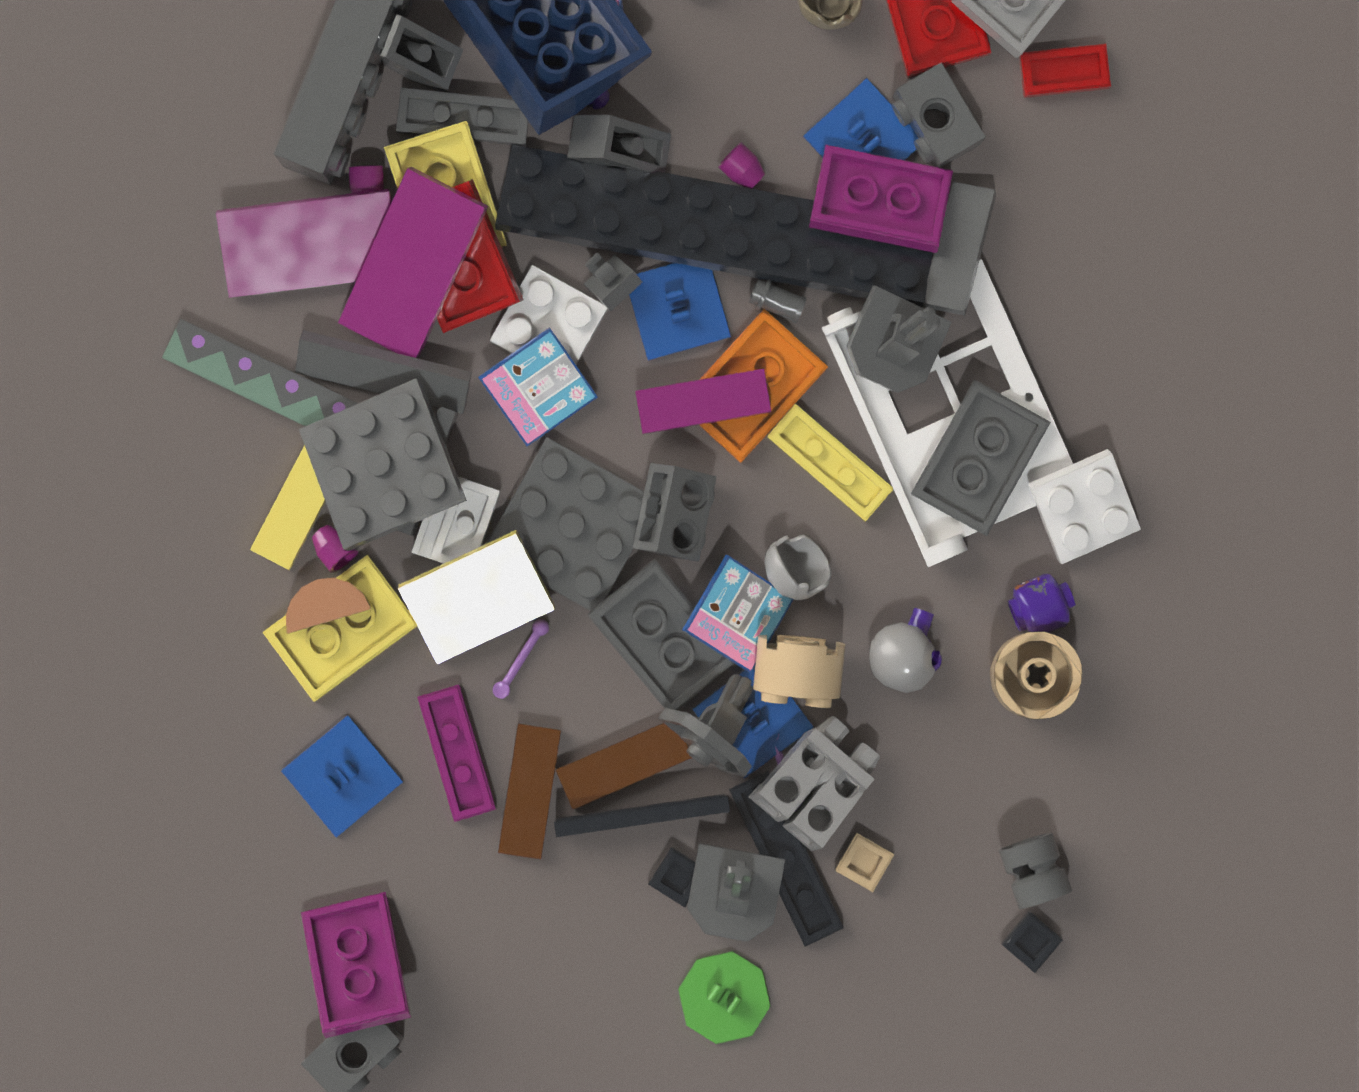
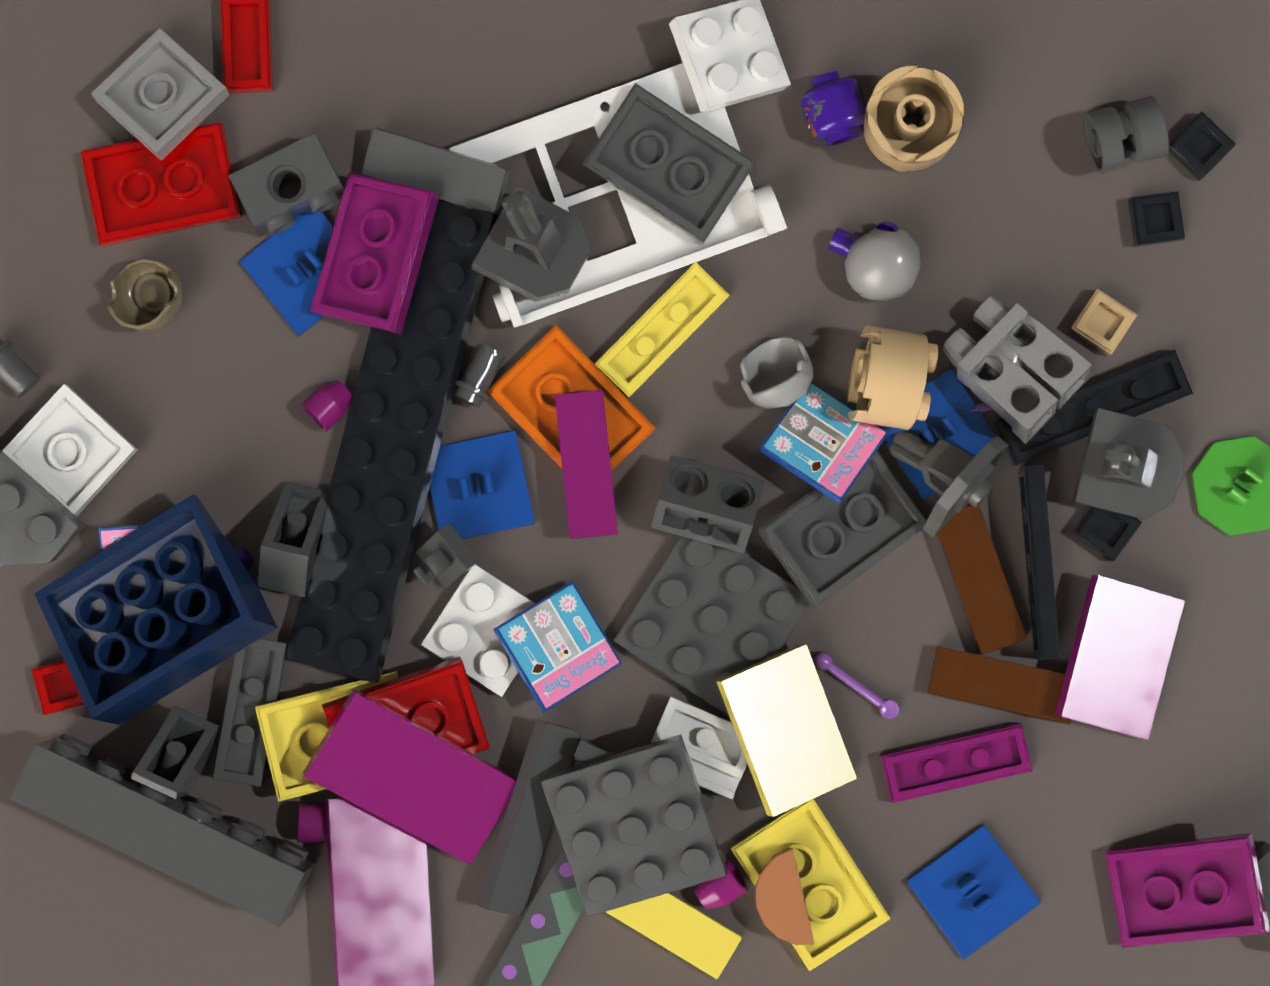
camera: 85 degrees left, 0 degrees up
(561, 893) = (1119, 657): none -> tile
(961, 905) = (1156, 219): none -> black tile

